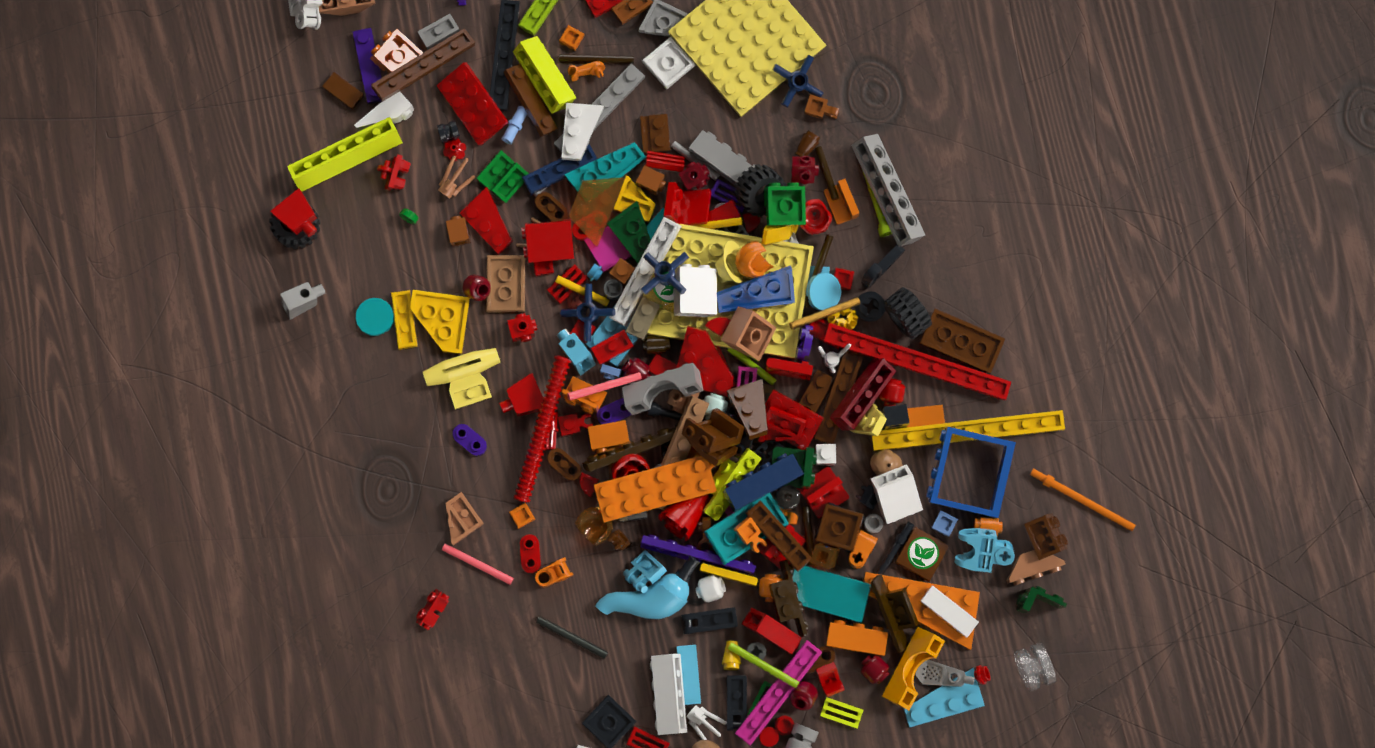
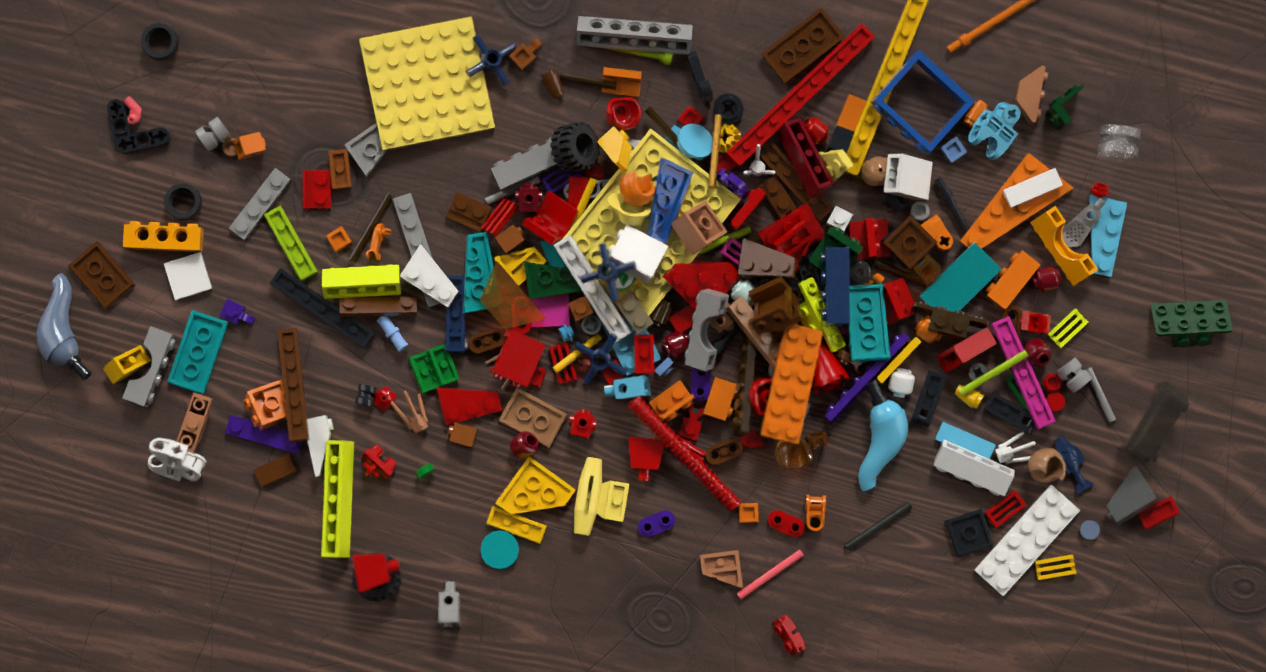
camera: 65 degrees left, 5 degrees up
(438, 31) = (267, 355): light grey plate -> none
(472, 103) = (352, 360): red plate -> none
(604, 386) = (677, 379): coral bar -> none
(649, 569) = (855, 426): medium azure plate -> none
(668, 63) = (410, 165): white plate -> none
(718, 325) = (676, 250): red tile -> none
(749, 532) = (874, 322): orange plate -> none
(779, 536) = (891, 298): reddish brown plate -> none
(785, 204) = (602, 132): green plate -> none
(804, 170) = (575, 99): dark red brick -> none
(896, 611) = (1009, 233): dark brown bracket -> none
(907, 313) = (754, 79): black tyre -> none
(922, 554) = (969, 184): slope -> none
(1046, 536) = (1013, 68): reddish brown bracket -> none

